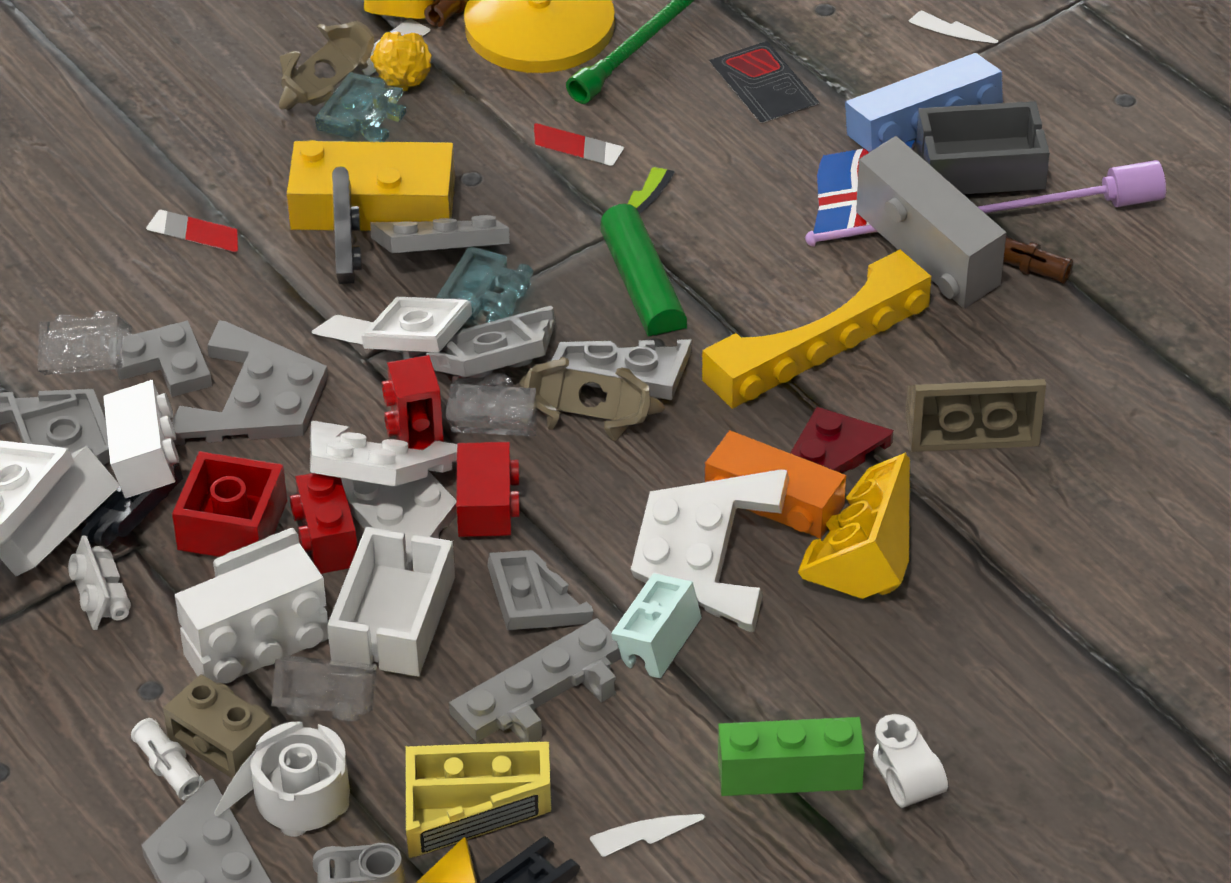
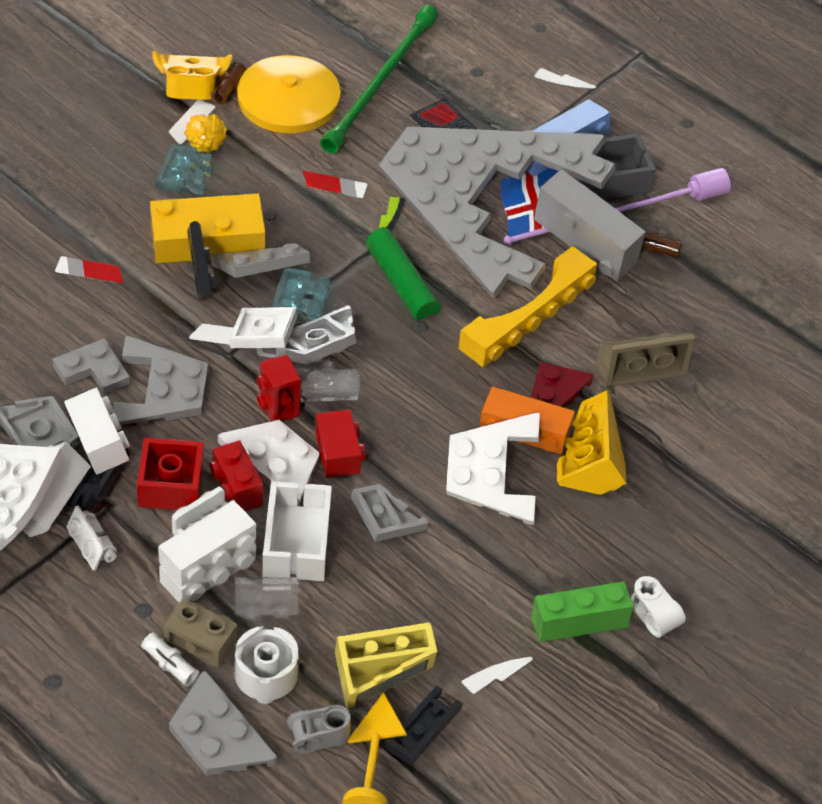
camera: 15 degrees left, 5 degrees up
(82, 344) = (36, 363): clear bracket -> none
(238, 787) = (226, 670): white sticker -> none
(346, 50) = (165, 127): dark tan piece -> none
(349, 456) = (259, 433): white wing -> none
(514, 694) = (389, 587): light grey hinge -> none
(559, 389) = (416, 368): dark tan piece -> none
(656, 366) = (409, 346): light grey wing -> none
(658, 623) = (474, 526): light aqua hinge -> none
(740, 131) = (449, 167): none -> light grey wing

